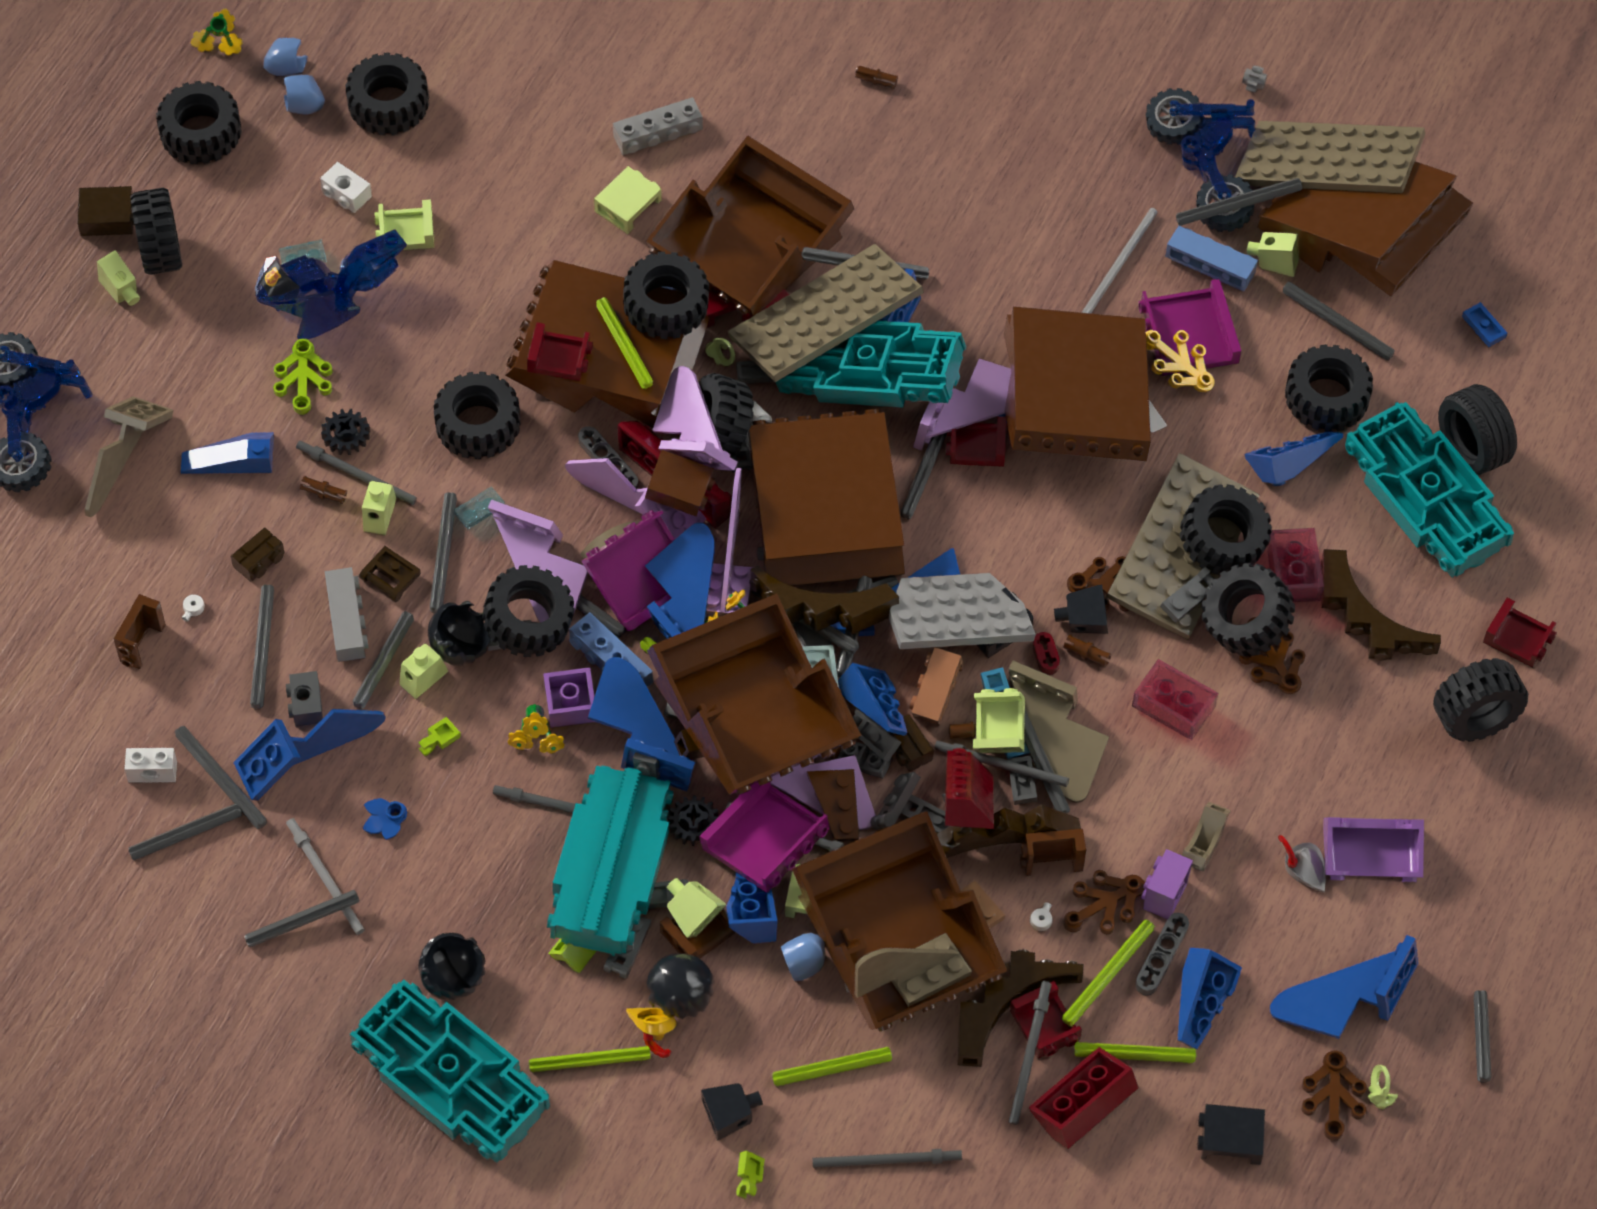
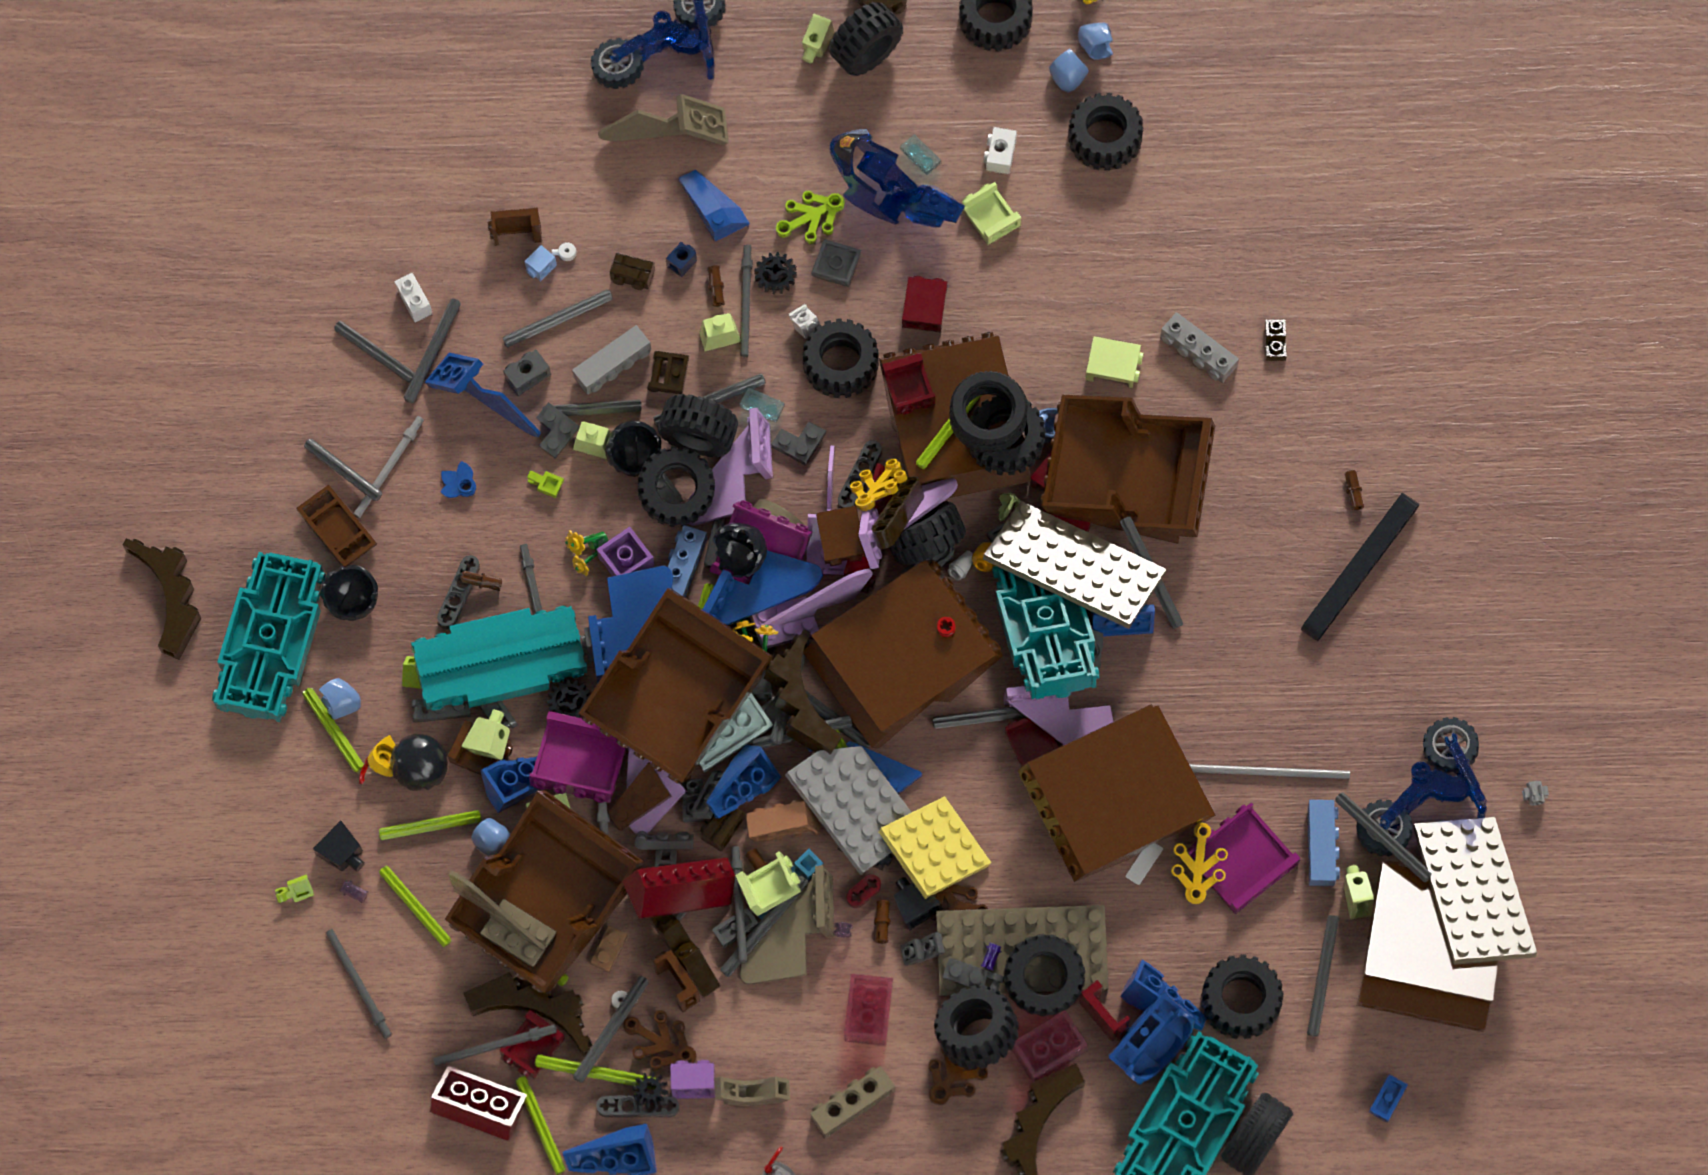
camera: 65 degrees right, 10 degrees up
(192, 632) = (540, 263): none -> light blue brick
(274, 513) = (678, 266): none -> dark blue brick
(335, 1143) = (180, 618): none -> dark brown arch
(363, 953) = (336, 526): none -> reddish brown slope
(369, 377) = (836, 263): none -> dark grey plate
(388, 694) = (561, 429): none -> dark grey plate
(417, 428) = (804, 320): none -> white brick
(465, 321) = (924, 303): none -> dark red panel
(475, 559) = (698, 425): none -> black tyre
(507, 872) = (459, 592): none -> dark grey beam
(511, 841) = (481, 580): none -> reddish brown axle
(544, 495) = (800, 447): none -> dark grey plate
(562, 1033) = (340, 698): none -> medium blue piece
(636, 579) = (740, 549): none -> black piece
(645, 255) = (992, 384): none -> black tyre
(660, 439) = (866, 501): none -> yellow plant
(687, 68) = (1275, 340): none -> dark brown slope
(692, 417) = (898, 513): none -> dark brown beam
(750, 1013) = (430, 825): none -> lime axle
(764, 390) = (977, 558): none -> light orange head
(783, 1117) = (353, 891): none -> pin
(831, 430) = (948, 621): none -> red bush
(956, 107) = (1360, 566): none -> black beam
(1040, 567) = (934, 847): none -> light yellow plate
(1072, 936) = (610, 1029): none -> dark grey axle
(1081, 685) = (843, 929): none -> bush
(1136, 627) = (922, 949): none -> dark grey slope
(1148, 927) = (643, 1088): none -> black gear
(1180, 567) = (991, 956): none -> dark purple pin
(1258, 725) = (883, 1088): none -> dark tan brick
(1289, 506) = (1100, 1015): none -> dark red panel
(1334, 471) = (1154, 1039): none -> blue piece

